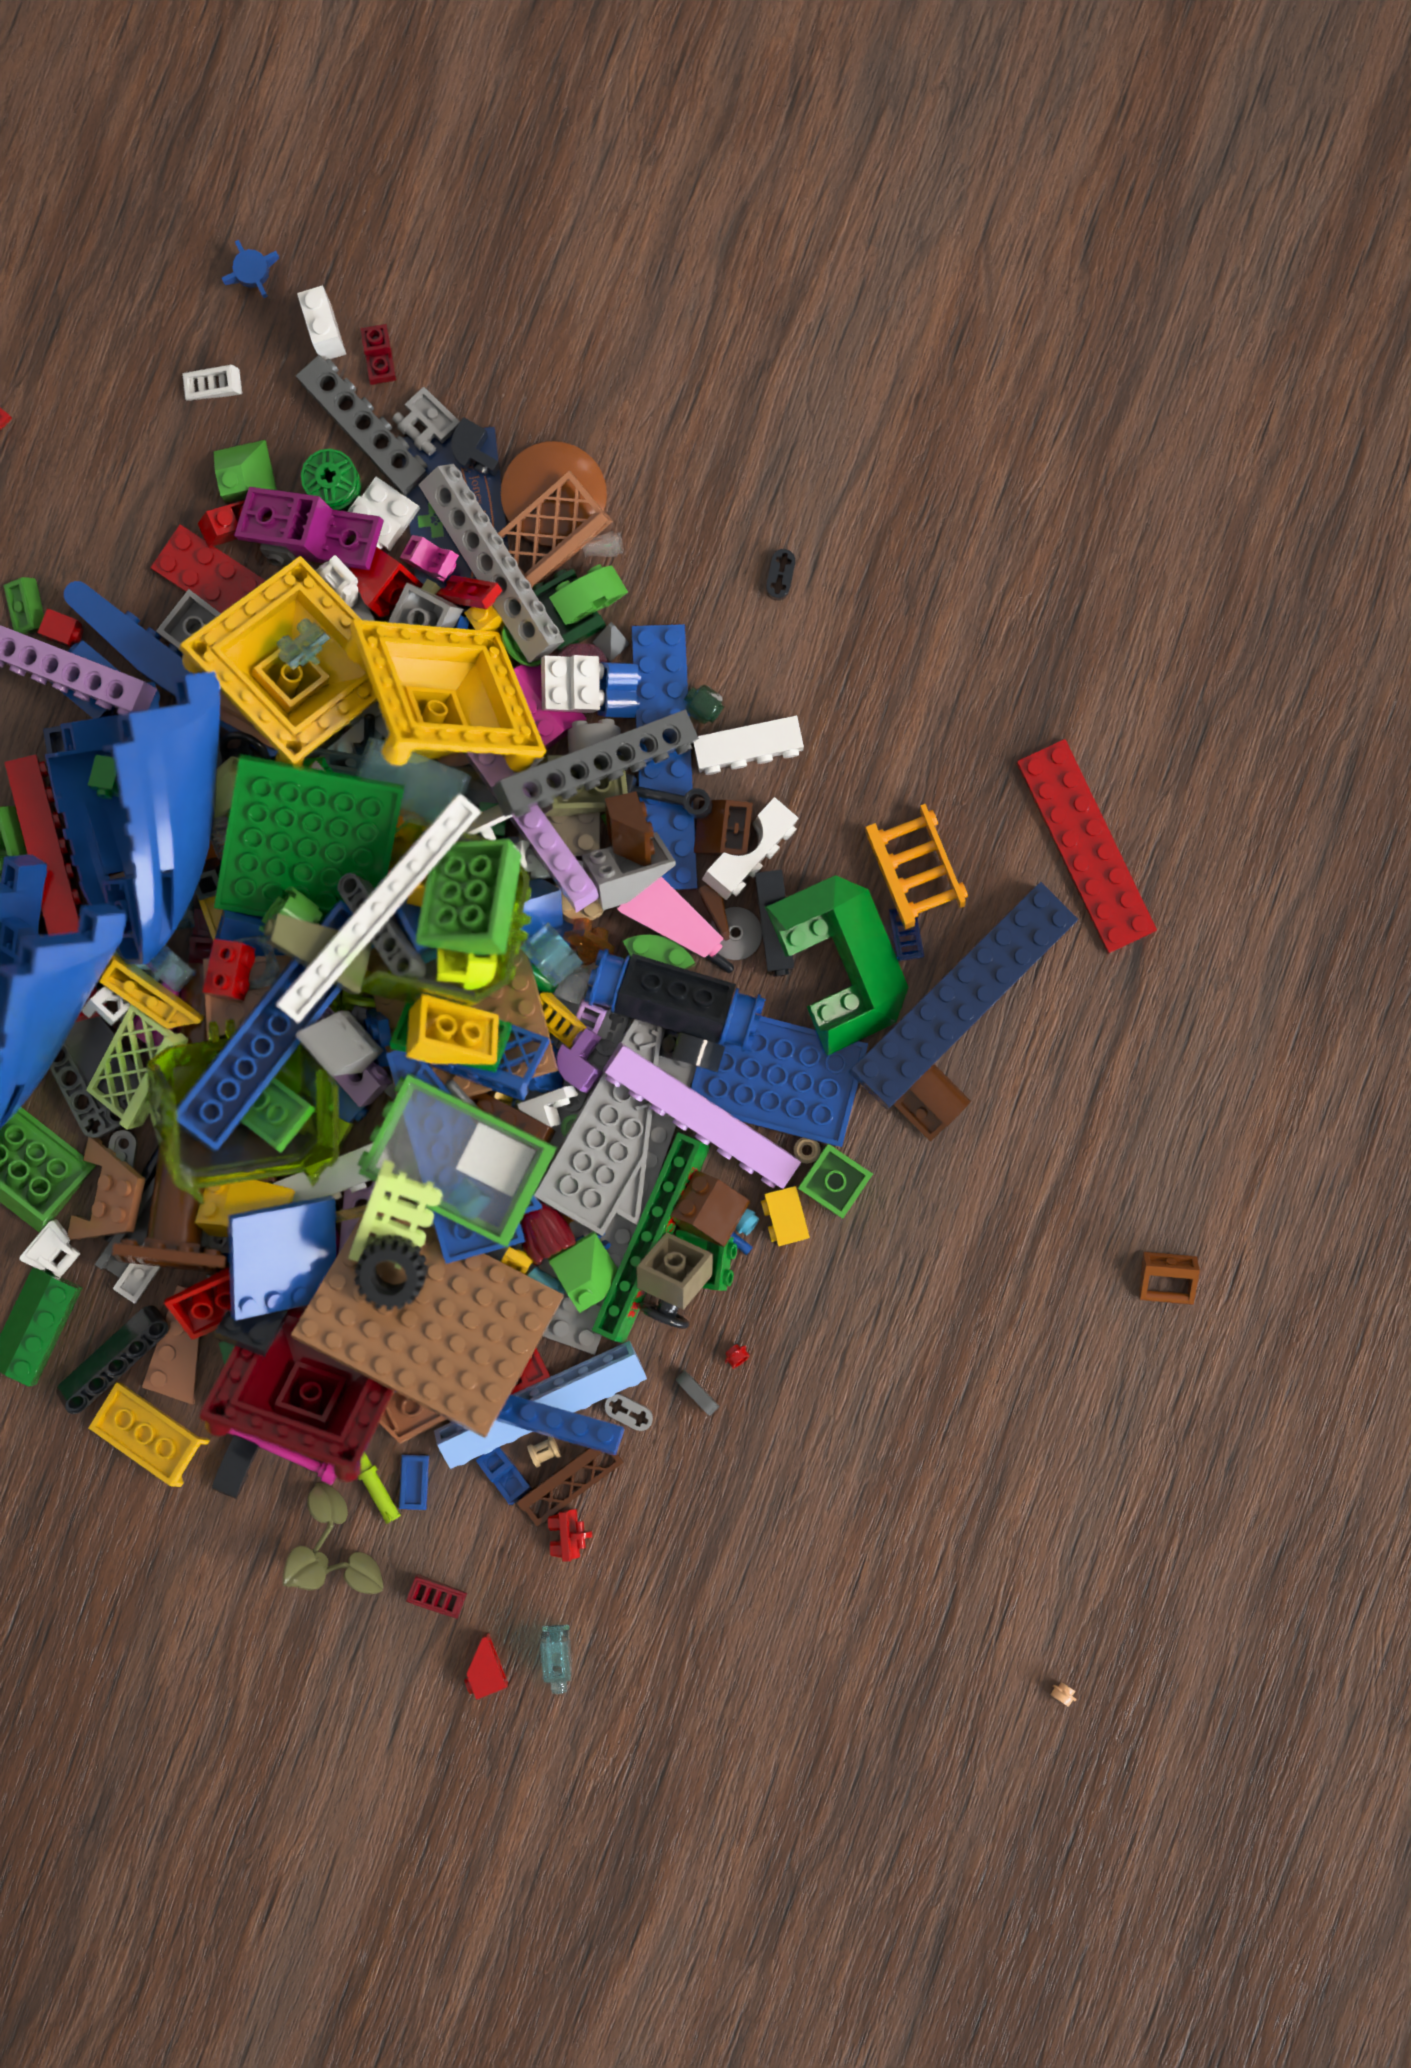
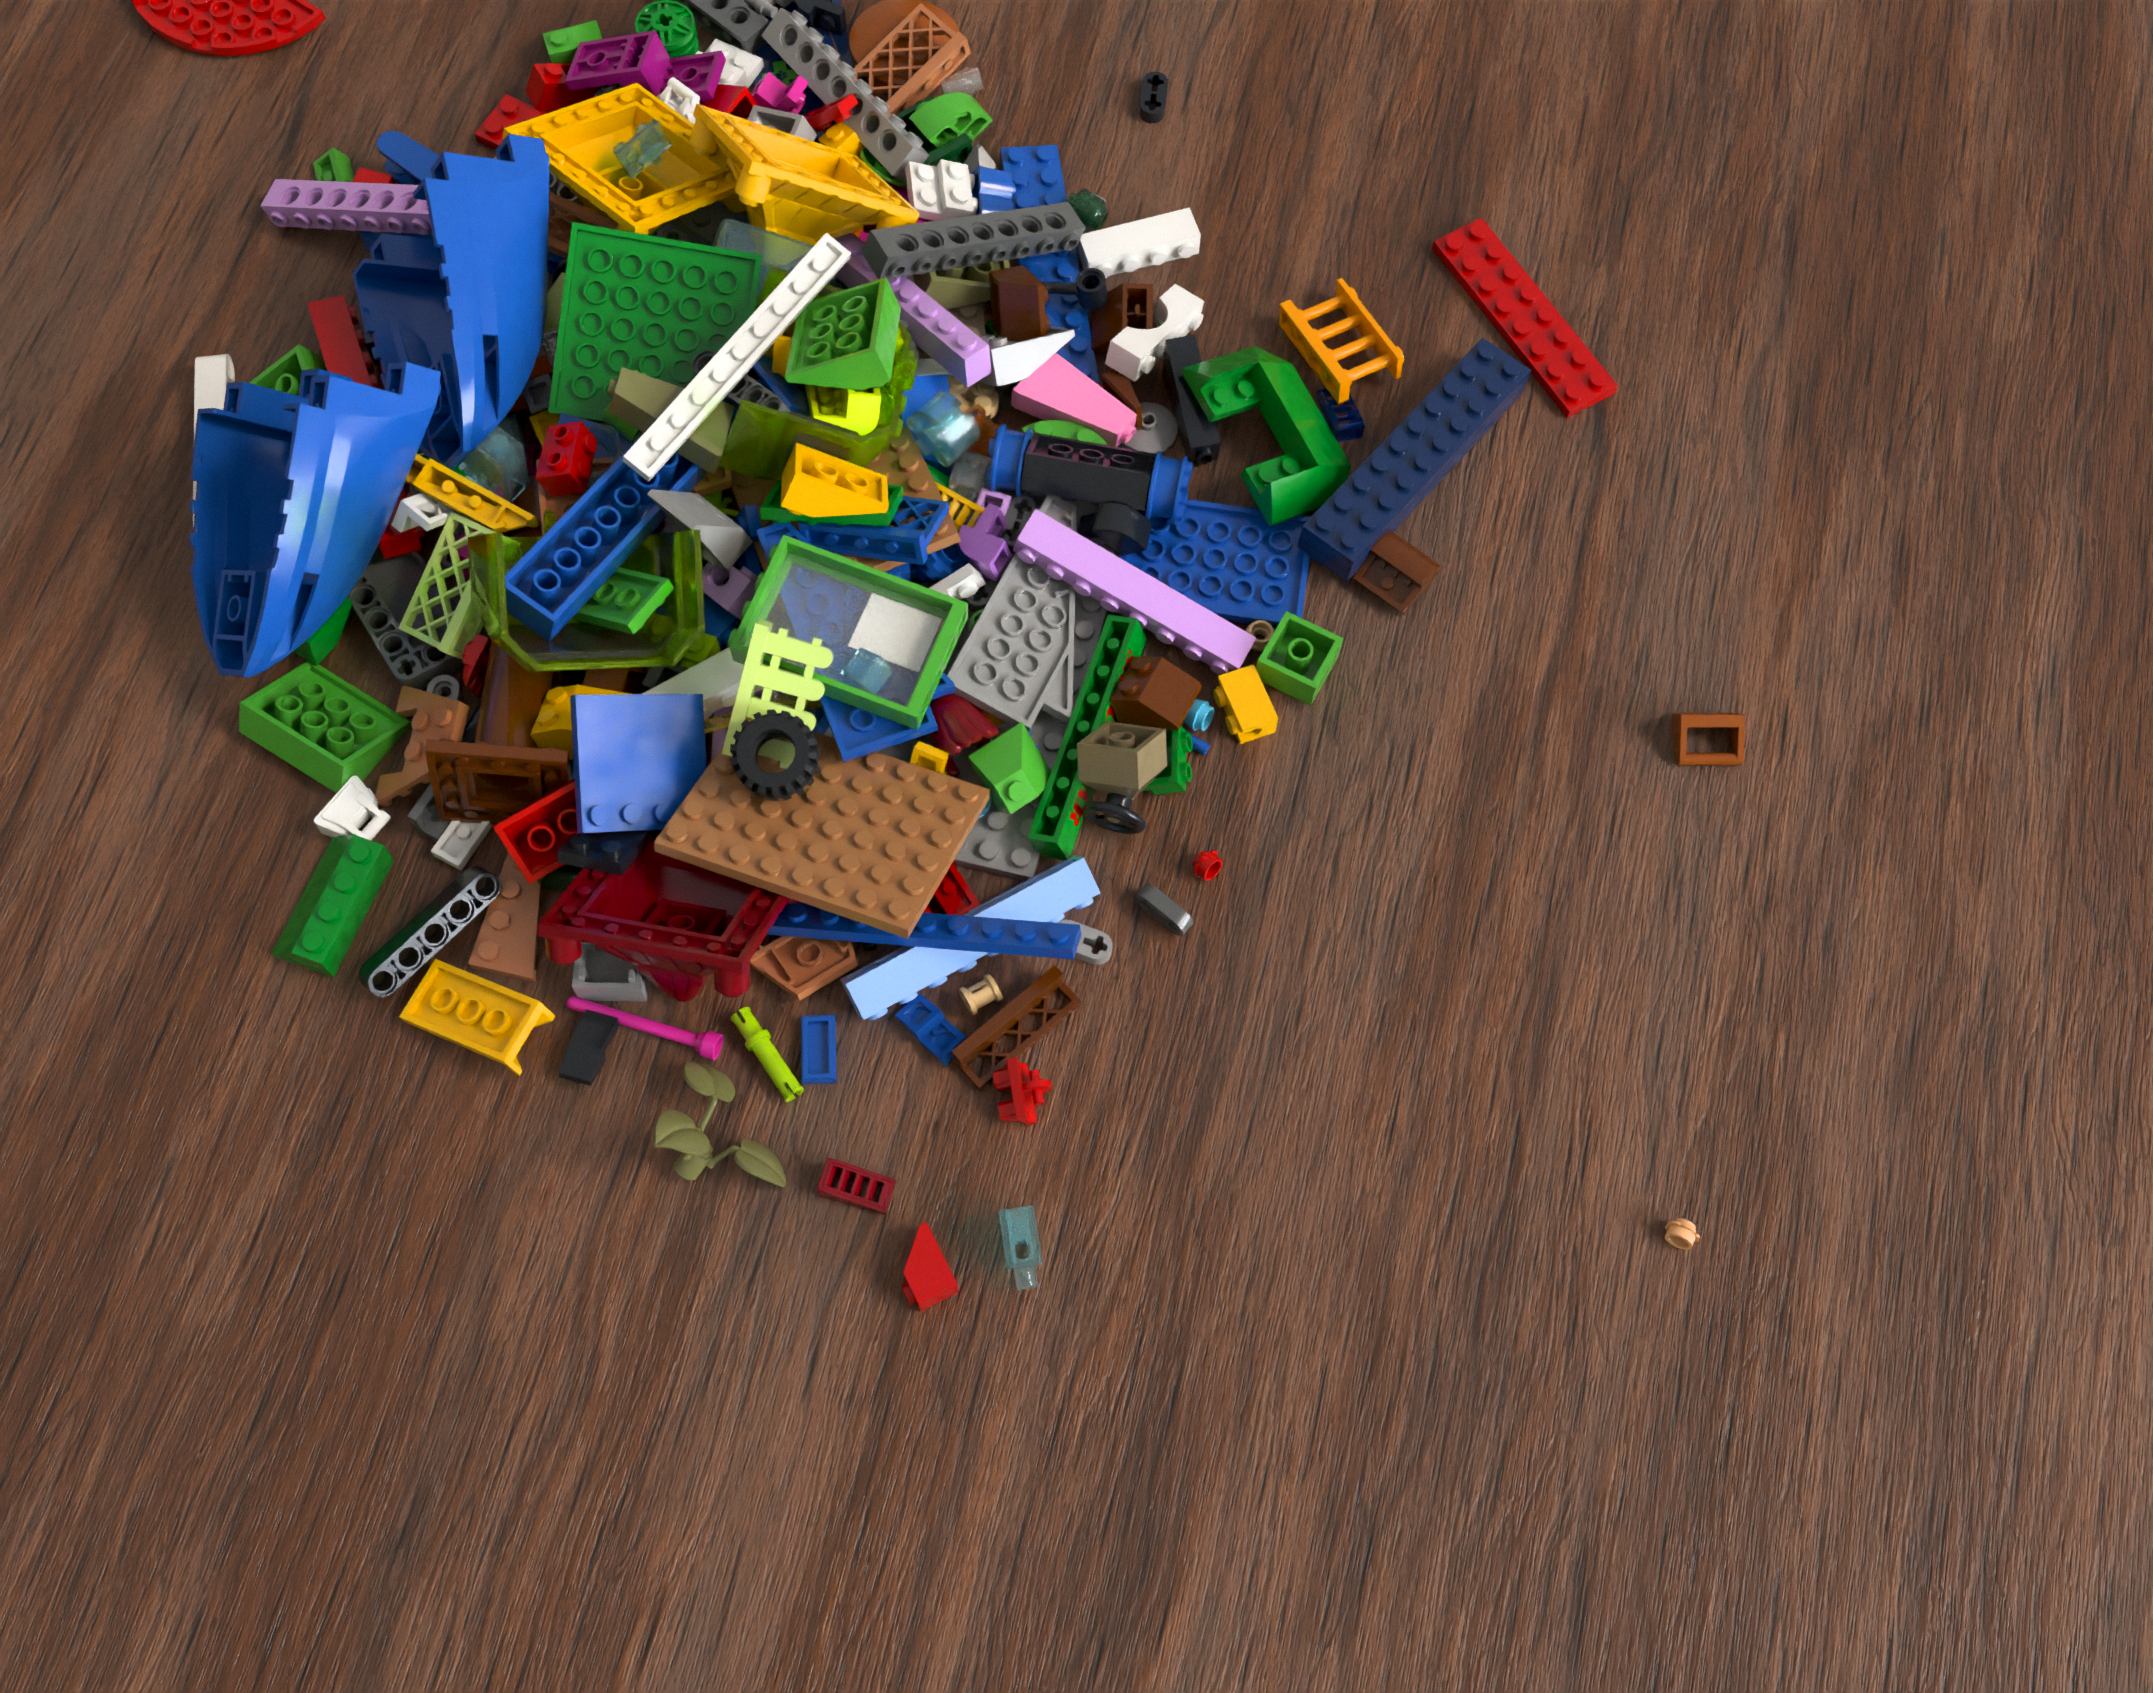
camera: 10 degrees left, 20 degrees down
(104, 777) = (424, 293): green brick -> none
(148, 1136) = (475, 663): none -> red plate

